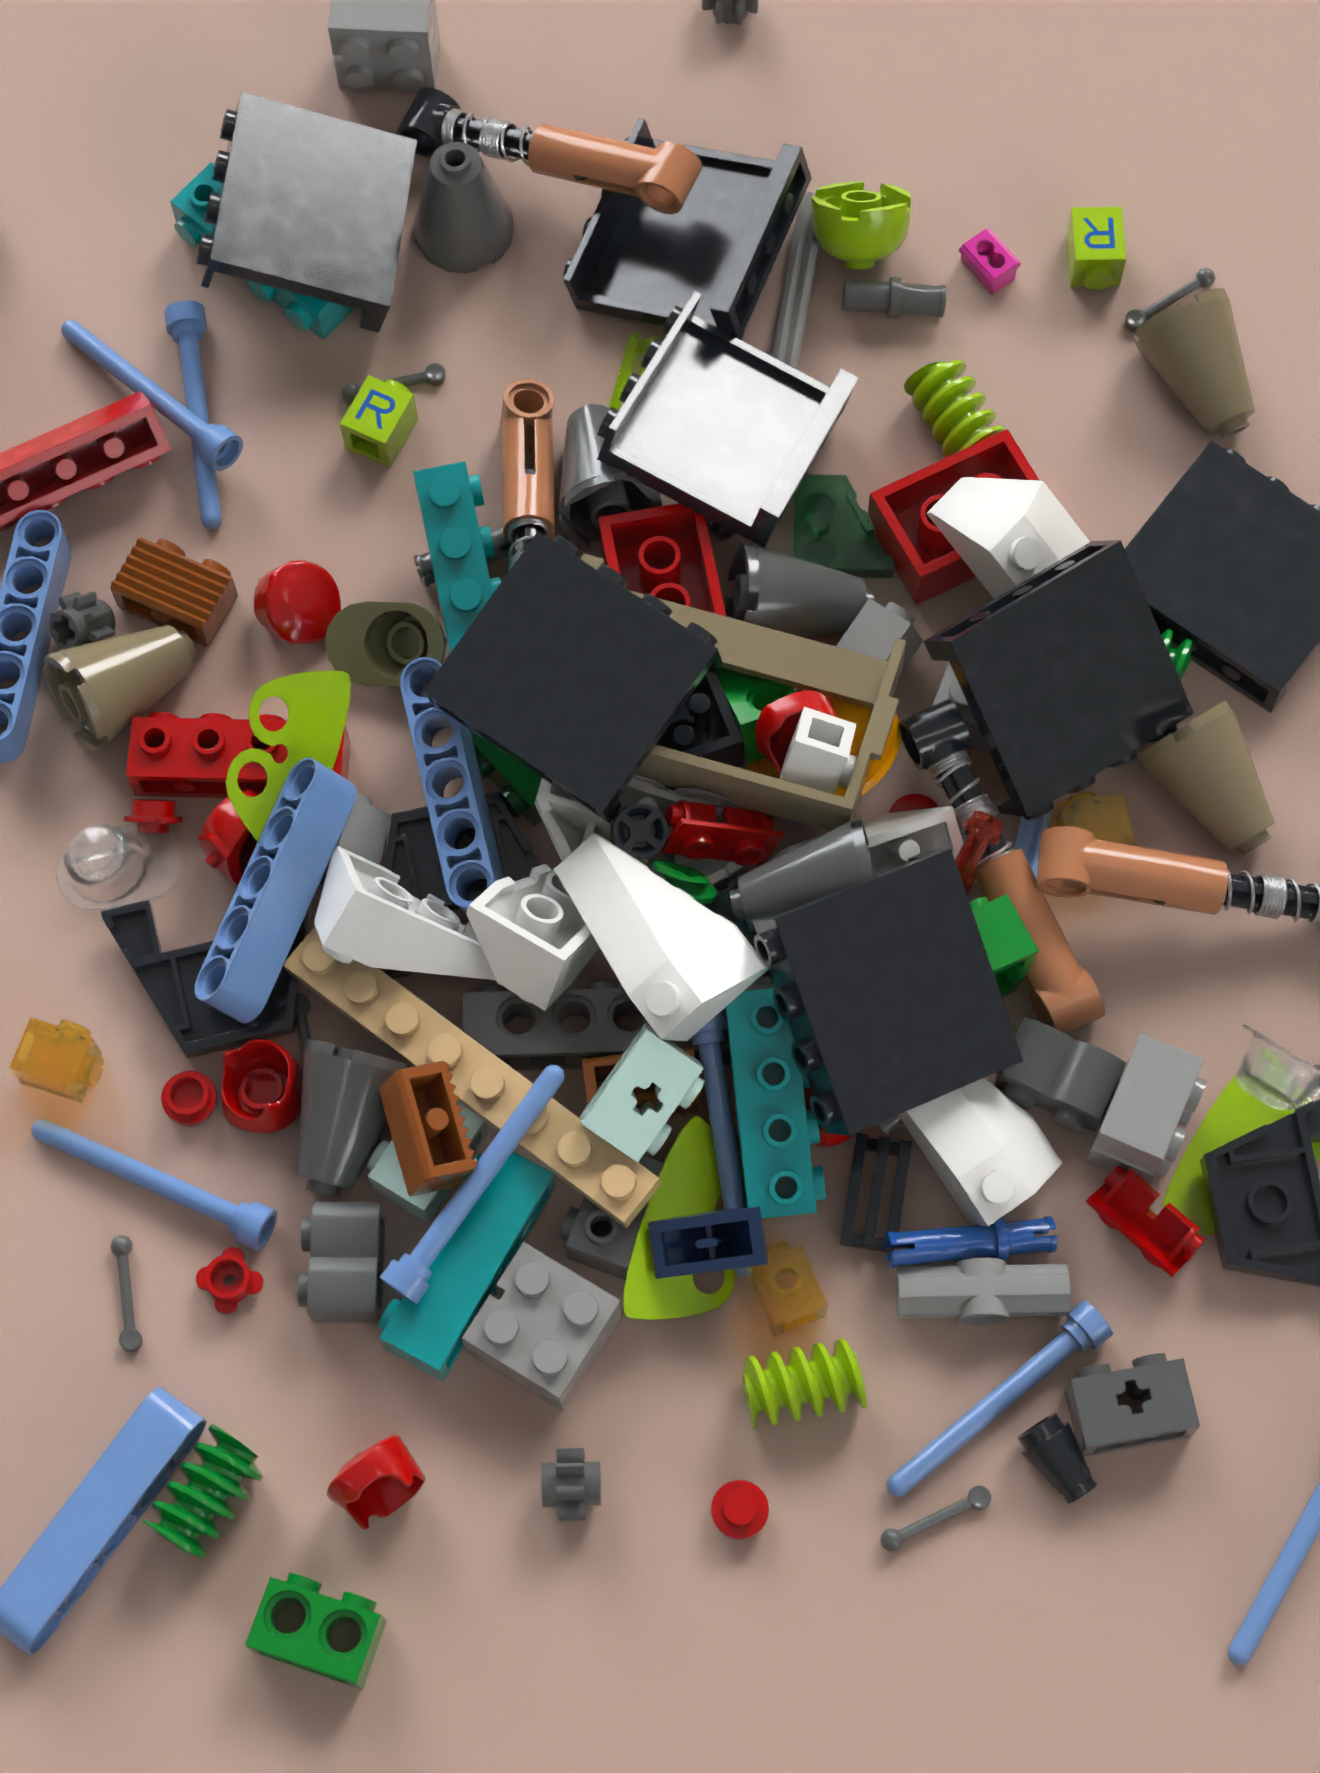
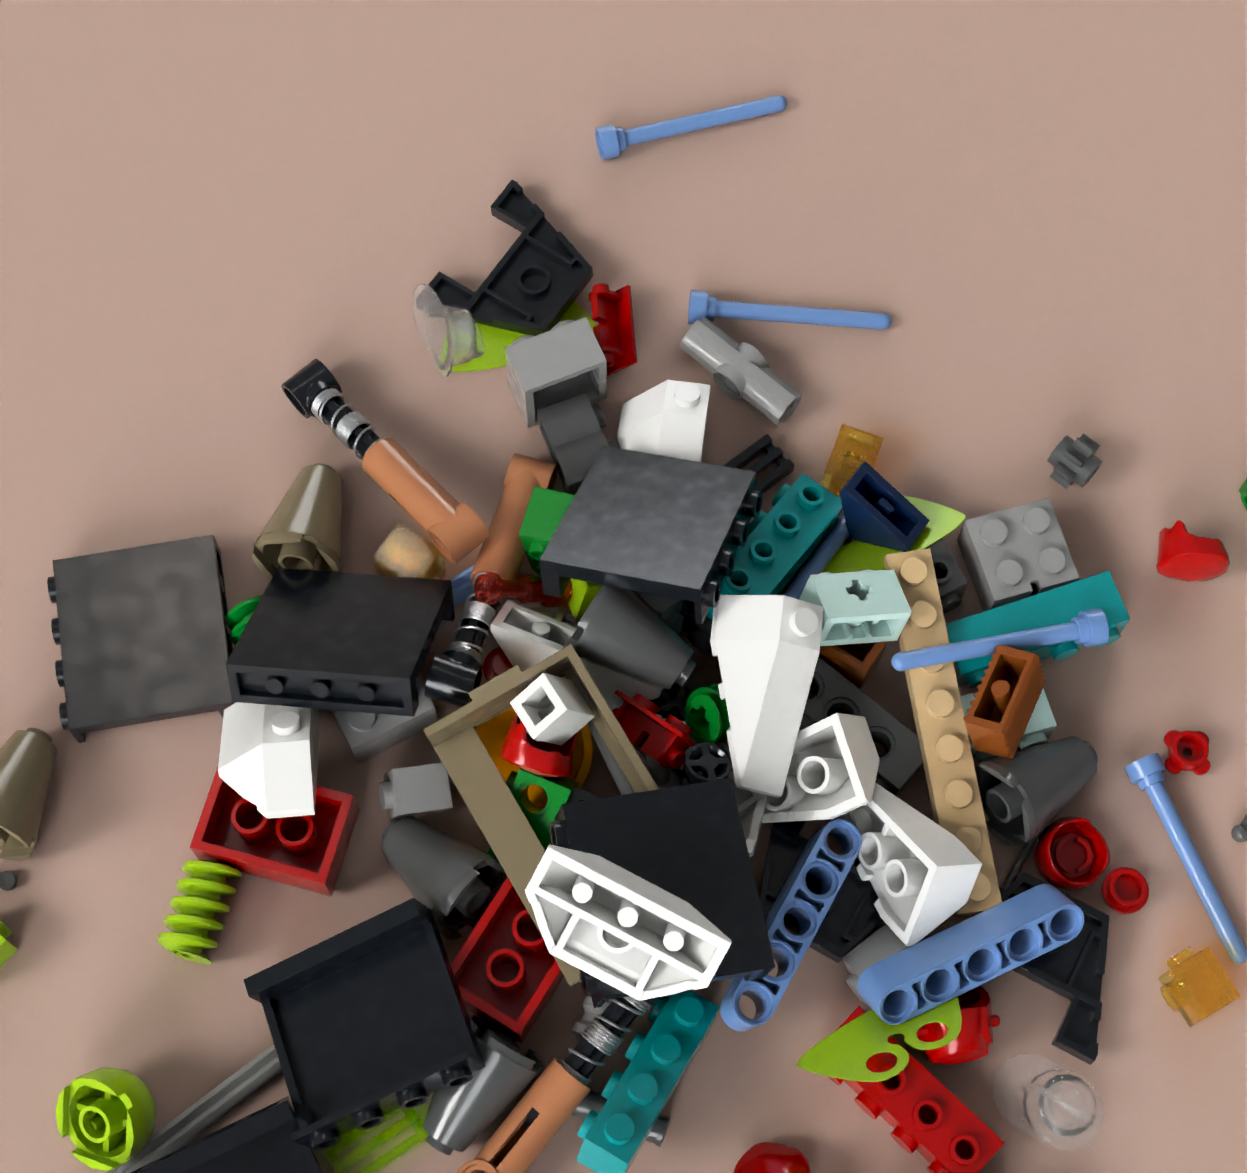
camera: 140 degrees left, 0 degrees up
(153, 815) = (1001, 1108): red plate -> none
(344, 1262) = (1107, 697): dark grey brick -> none
(380, 639) = (737, 1083): olive piece -> none
(569, 583) = (622, 926): none -> white wedge
(739, 1509) = (985, 377): red plate -> none
(802, 1382) = (892, 405): lime piece -> none
(835, 530) = (359, 892): clear green wing -> none
(894, 297) = (144, 1043): dark grey pin -> none
(970, 1242) = (728, 402): blue pin -> none
(977, 1499) = (844, 281): dark grey hinge -> none
(1003, 261) = (41, 1011): dark pink piece -> none
(1057, 1457) = (783, 260): black cone -> none
(1105, 1427) = (718, 247): dark grey brick -> none

